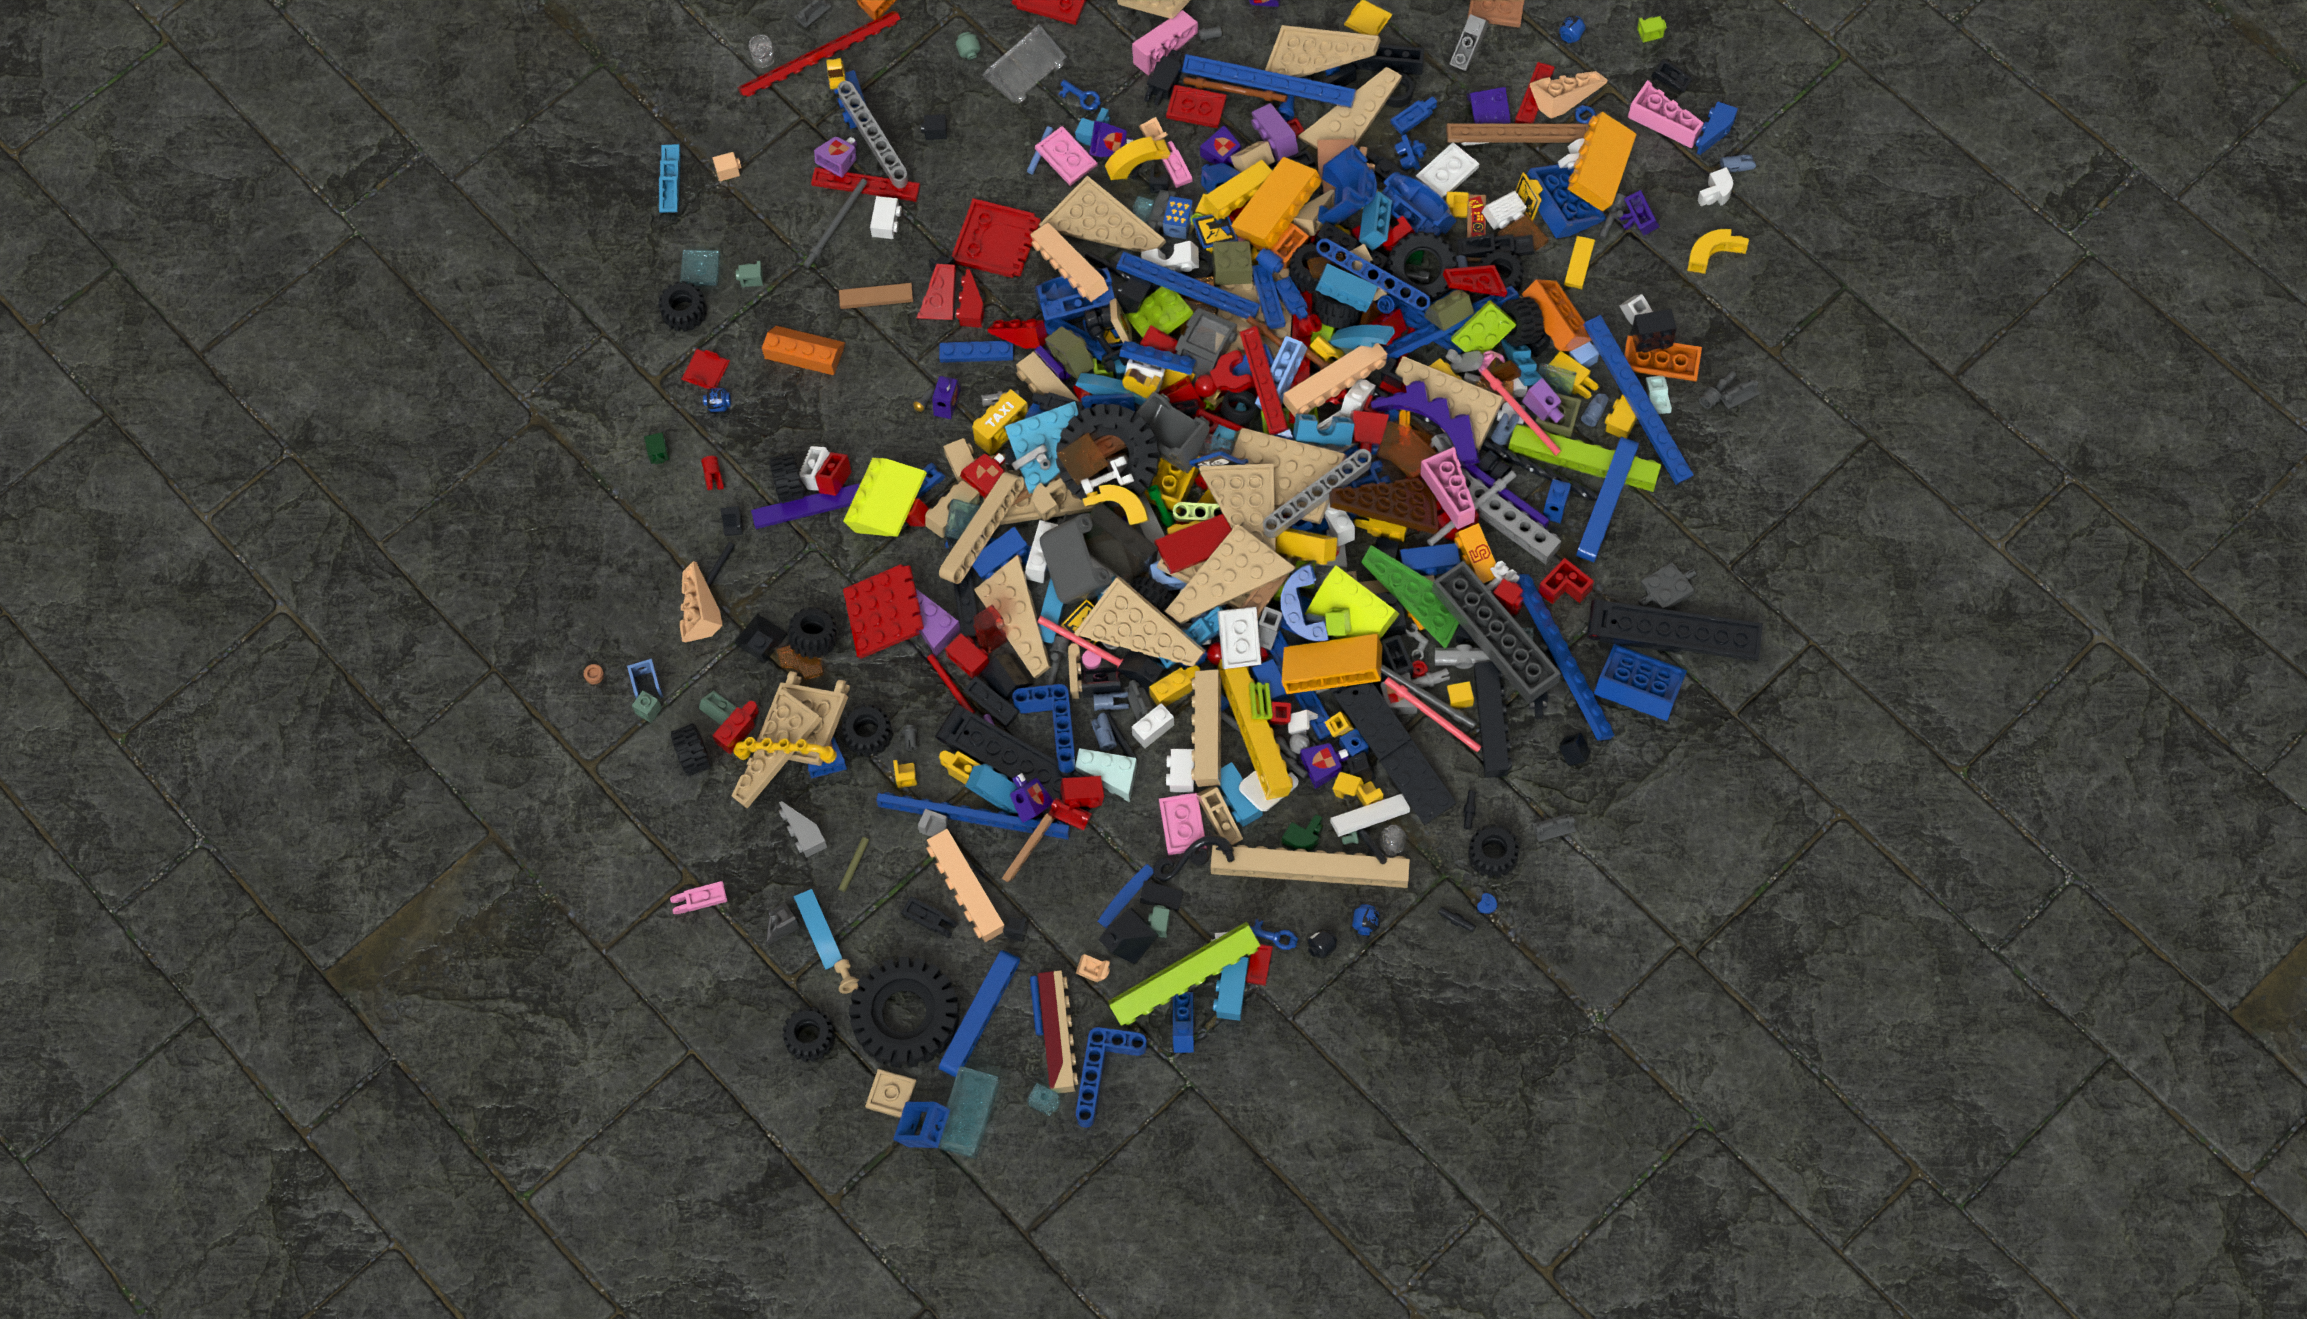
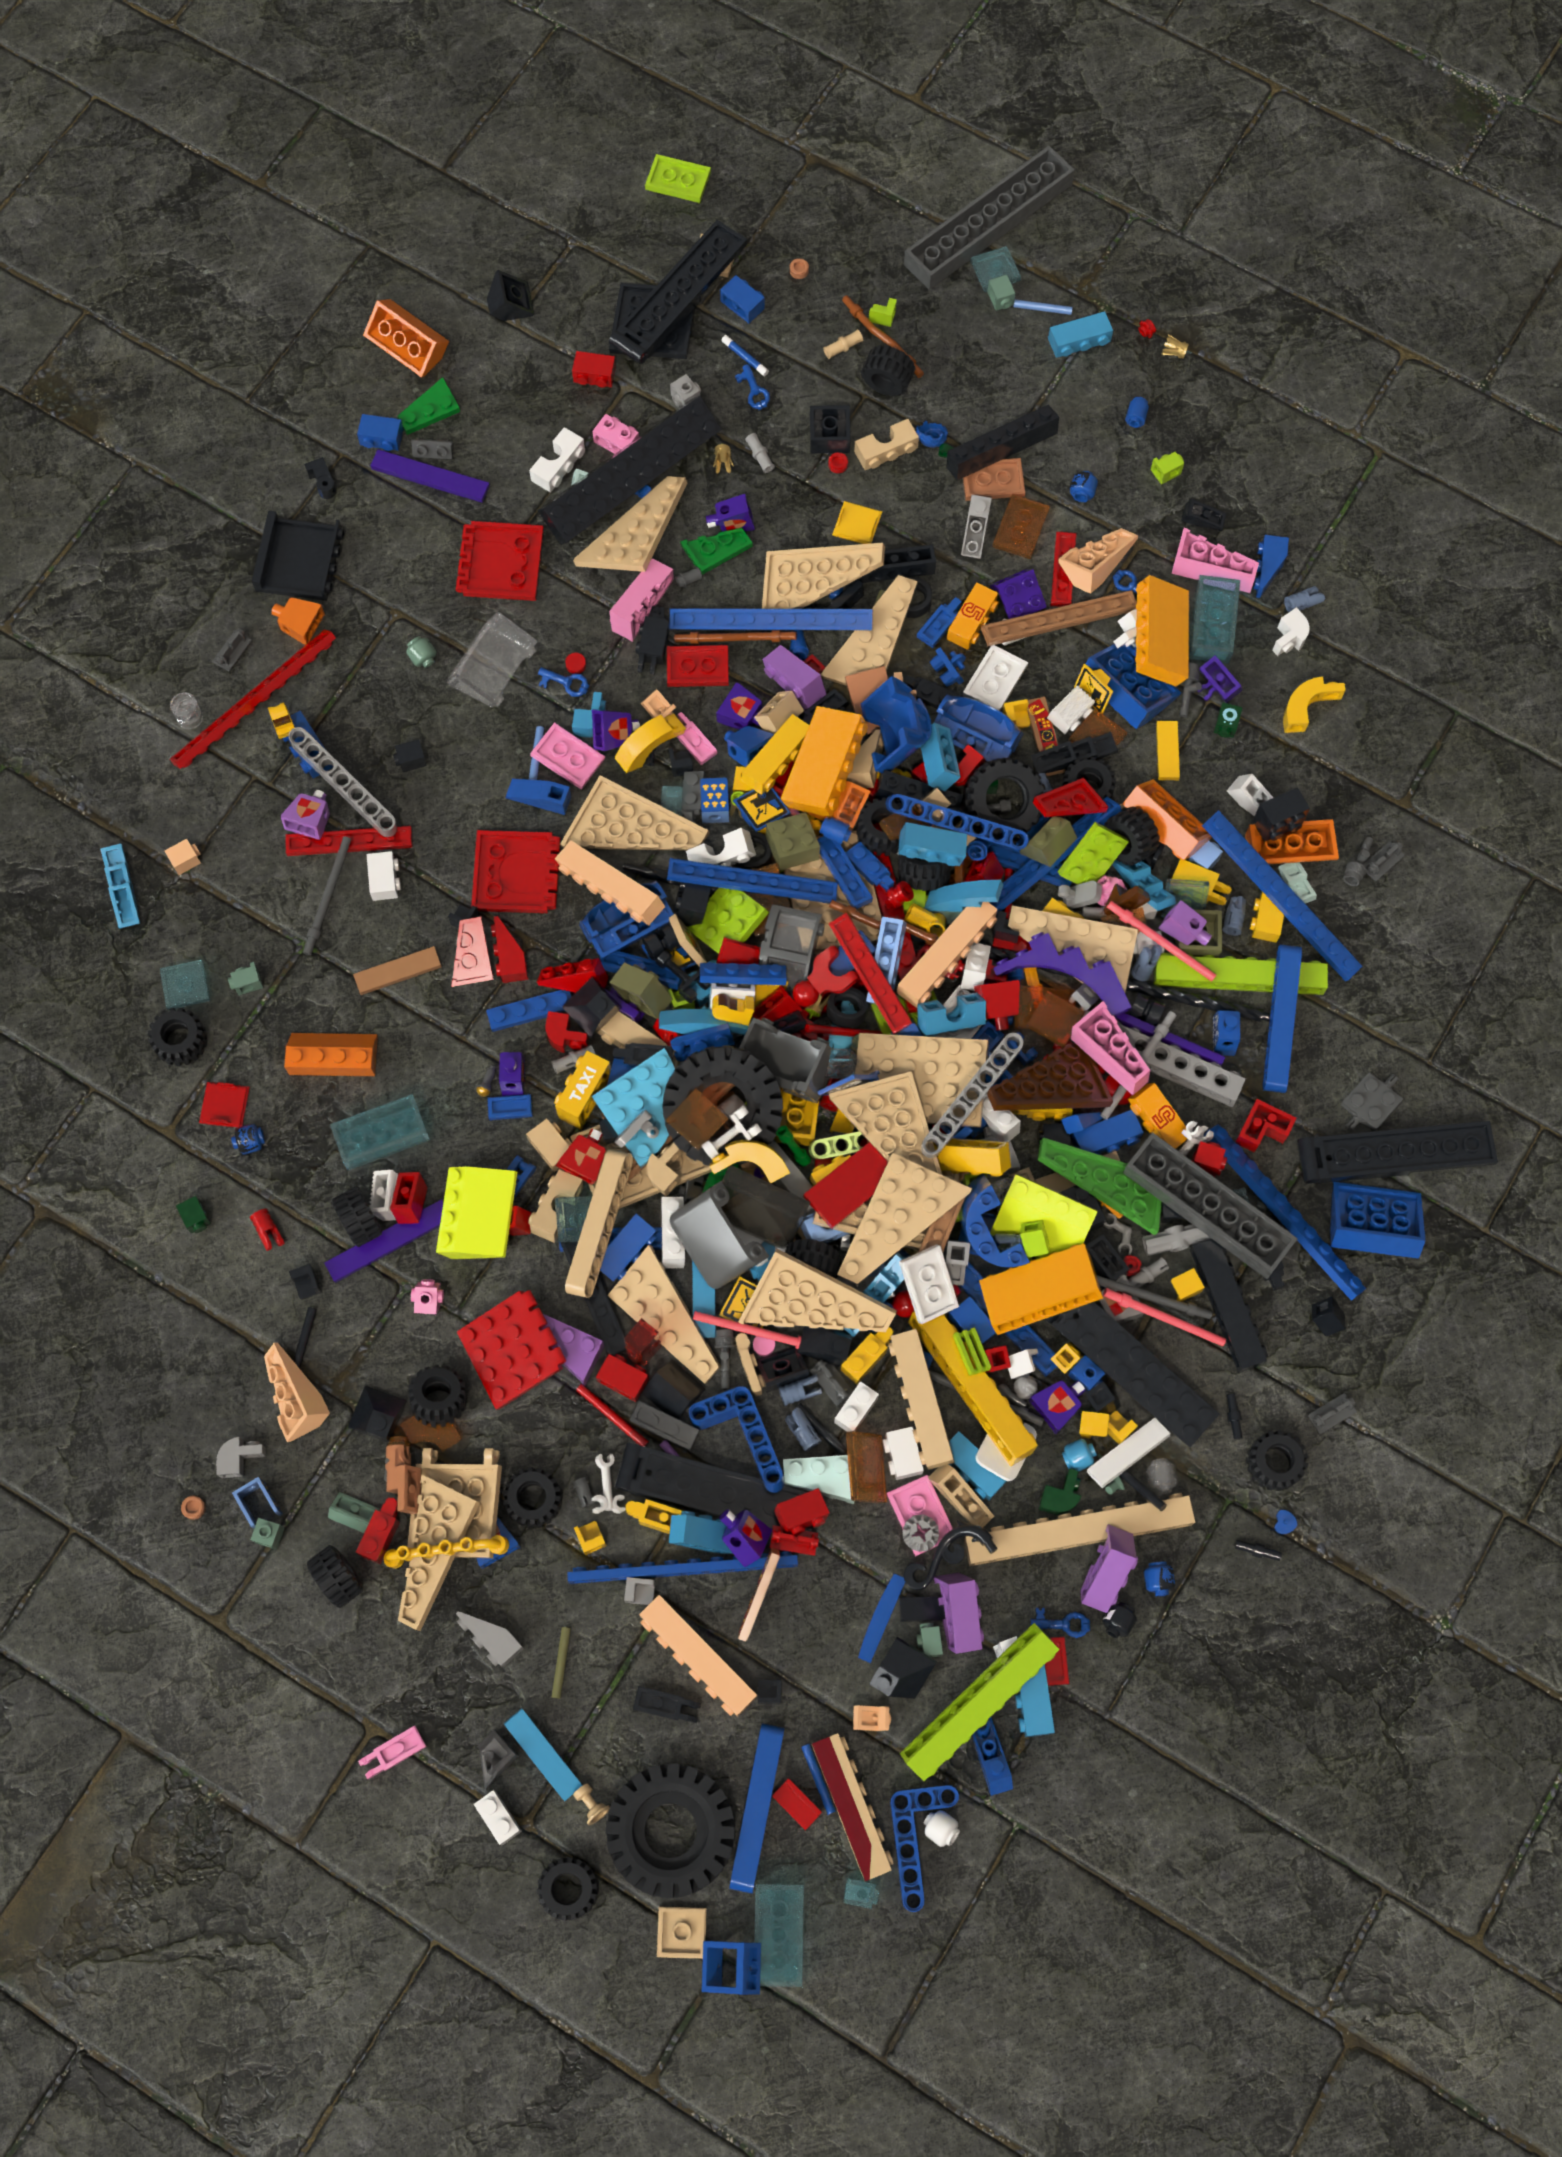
camera: 20 degrees left, 5 degrees up
(635, 641) = (232, 1455): none -> light grey brick
(766, 688) = (401, 1476): none -> nougat plate
(768, 967) = (497, 1817): none -> white brick
(824, 418) = (379, 1132): none -> clear light blue brick
(826, 555) = (427, 1296): none -> bright pink brick
(926, 748) = (607, 1501): none -> white bar
(937, 424) = (510, 1107): none -> blue tile
(994, 375) = (558, 1033): none -> red brick
(1013, 1019) = (796, 1804): none -> red panel
(1026, 357) = (591, 1007): none -> black slope
(1035, 181) = (540, 794): none -> blue slope
(1094, 82) = (575, 663): none -> red tile
(1125, 1067) = (941, 1828): none -> white head
(1146, 772) = (866, 1467): none -> clear orange tile
(1170, 841) = (931, 1535): none -> light grey gear
(1191, 904) = (961, 1612): none -> medium lavender wedge
(1238, 16) = (715, 550): none -> green wing
(1323, 900) = (1110, 1570): none -> medium lavender wedge
(1328, 806) = (1079, 1455): none -> dark azure head
(1408, 541) = (1080, 1121): none -> blue slope
(1447, 110) = (972, 615): none -> light orange brick
(1508, 51) = (1021, 526): none -> clear orange tile
(1638, 248) = (1227, 720): none -> dark green brick
(1652, 161) = (1214, 618): none -> clear light blue brick

